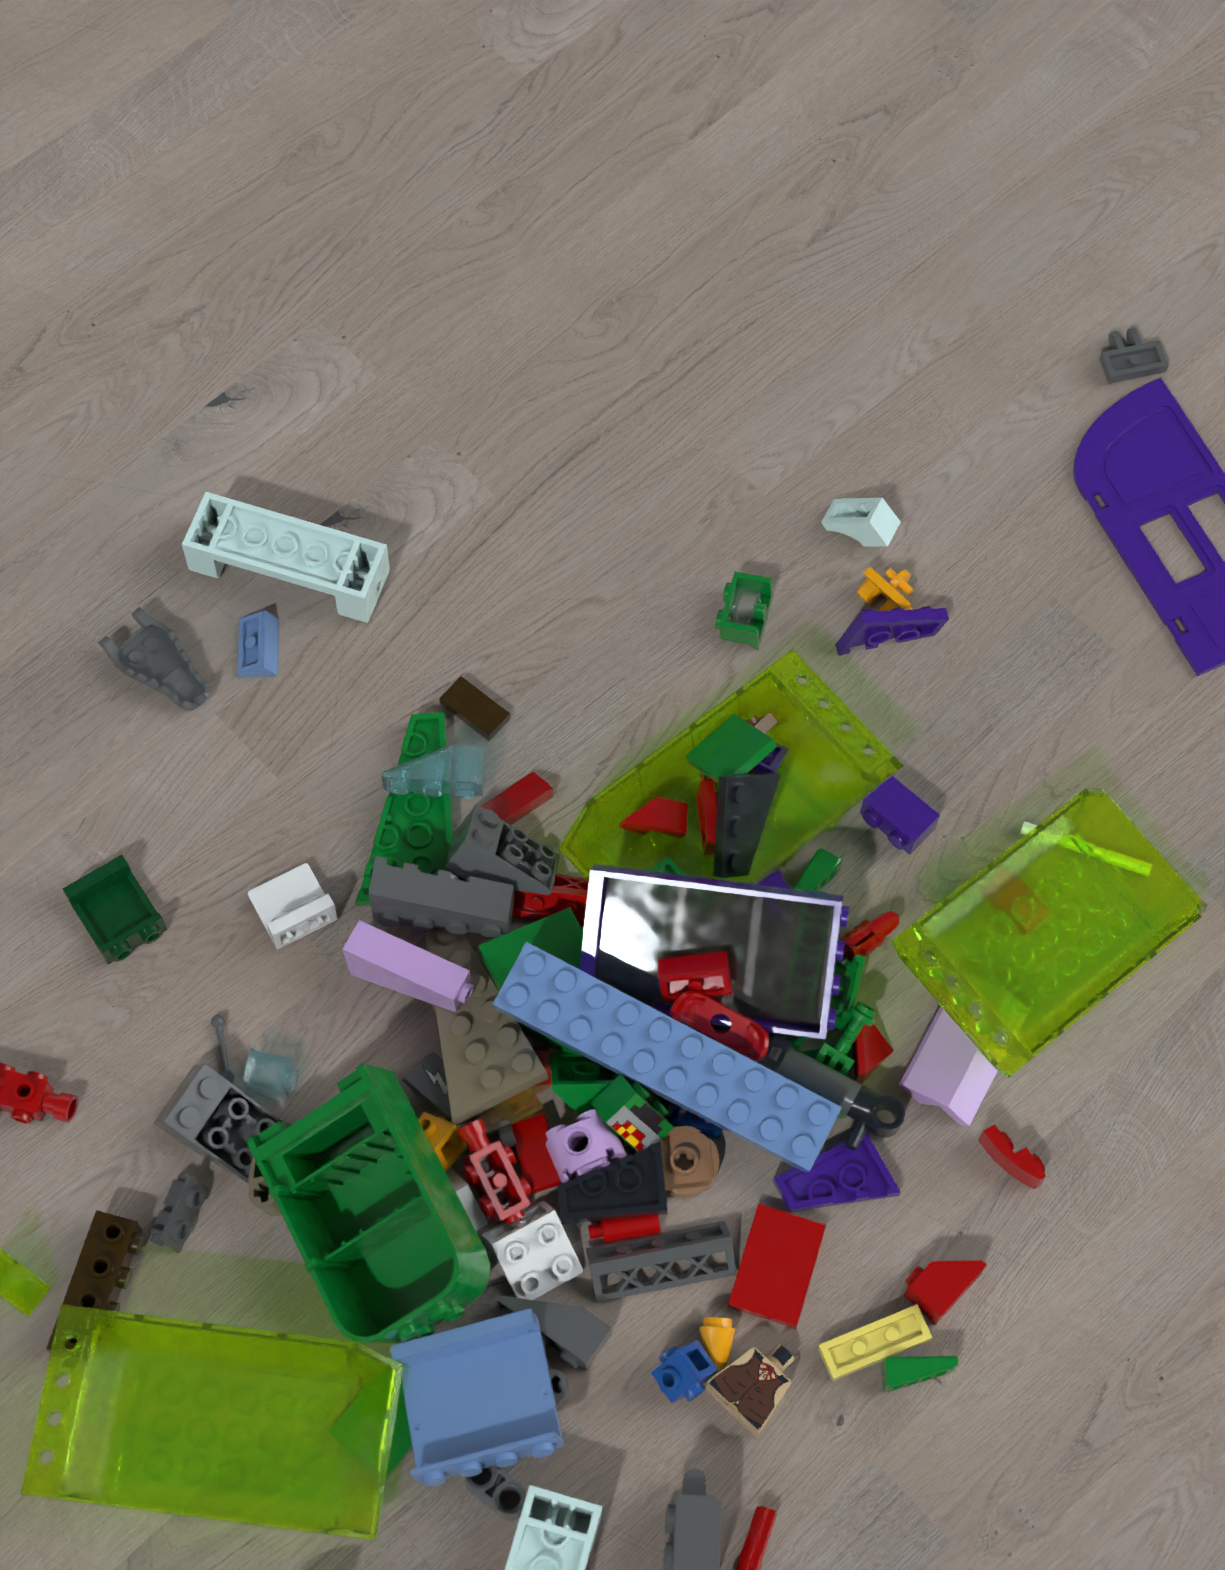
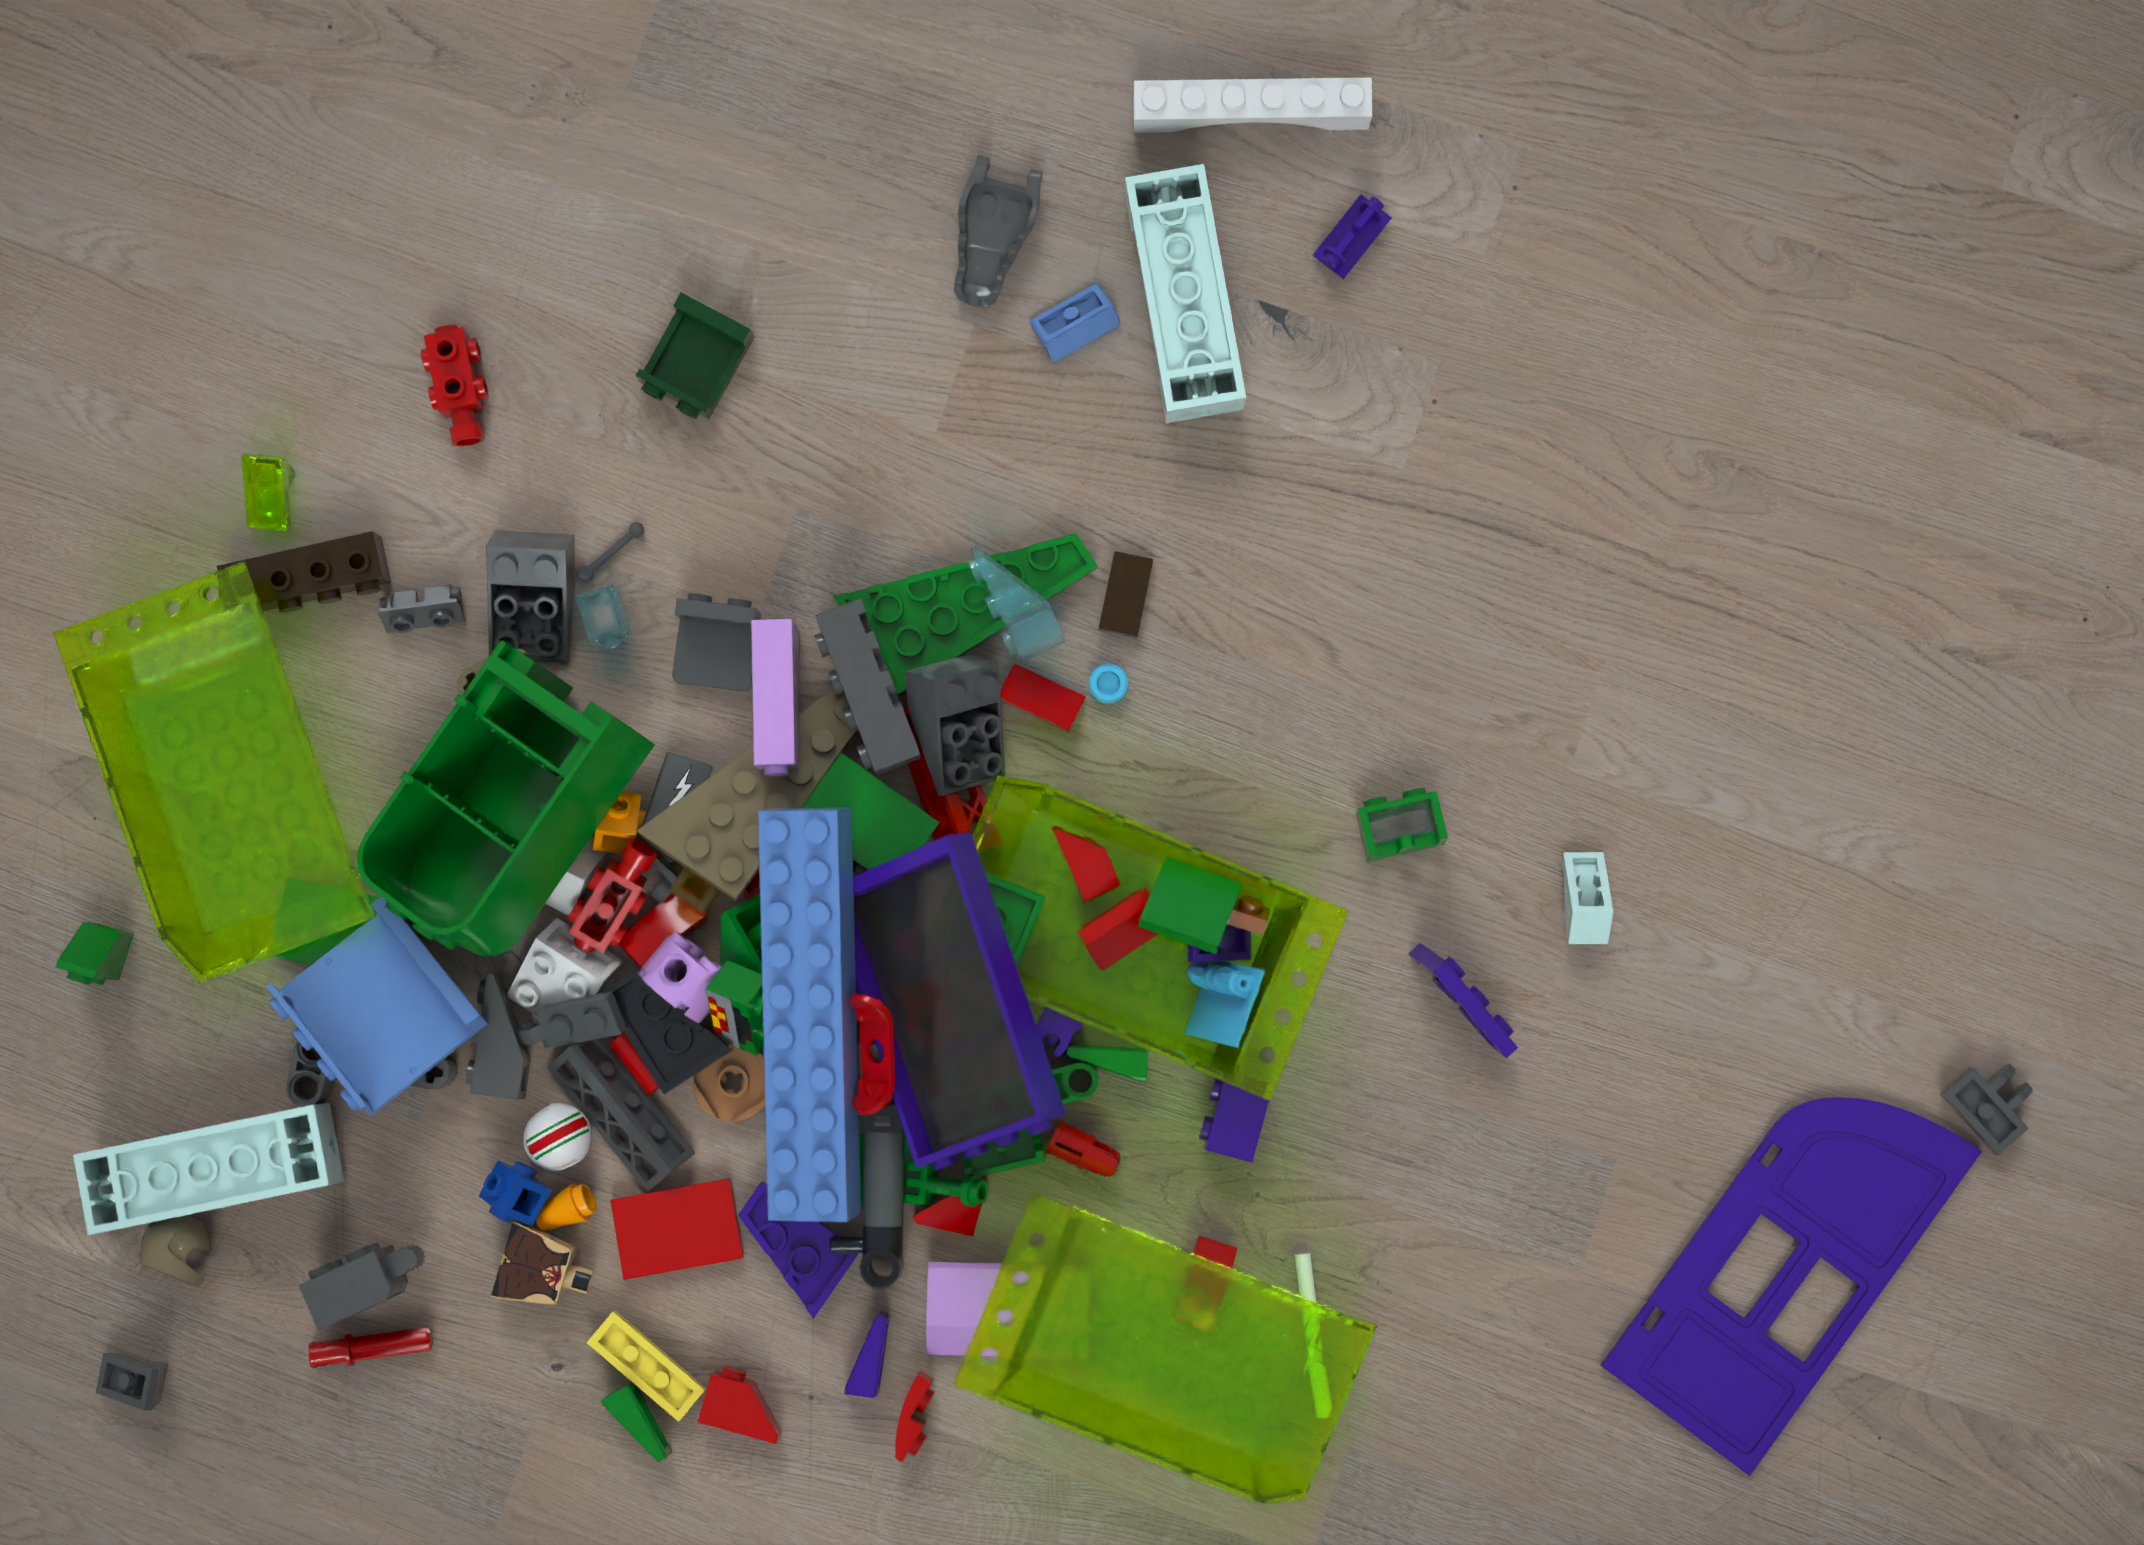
camera: 70 degrees right, 20 degrees up
(153, 494) = (1299, 101): none -> white arch
(292, 905) = (796, 532): white bracket -> none
(312, 442) = (1352, 235): none -> dark purple hinge
(338, 1002) = (714, 643): none -> dark grey bracket
(532, 752) = (1108, 683): none -> medium azure tile
(573, 1251) = (573, 1021): none -> dark grey hinge
(656, 1316) = (557, 1137): none -> white helmet
(698, 973) = (906, 999): red slope -> none
(740, 820) = (1119, 955): black wing -> none
(812, 774) = (1223, 1000): none -> medium azure hinge
(875, 585) = (1514, 955): light orange hips -> none
(954, 1166) = (867, 1371): none -> dark purple slope

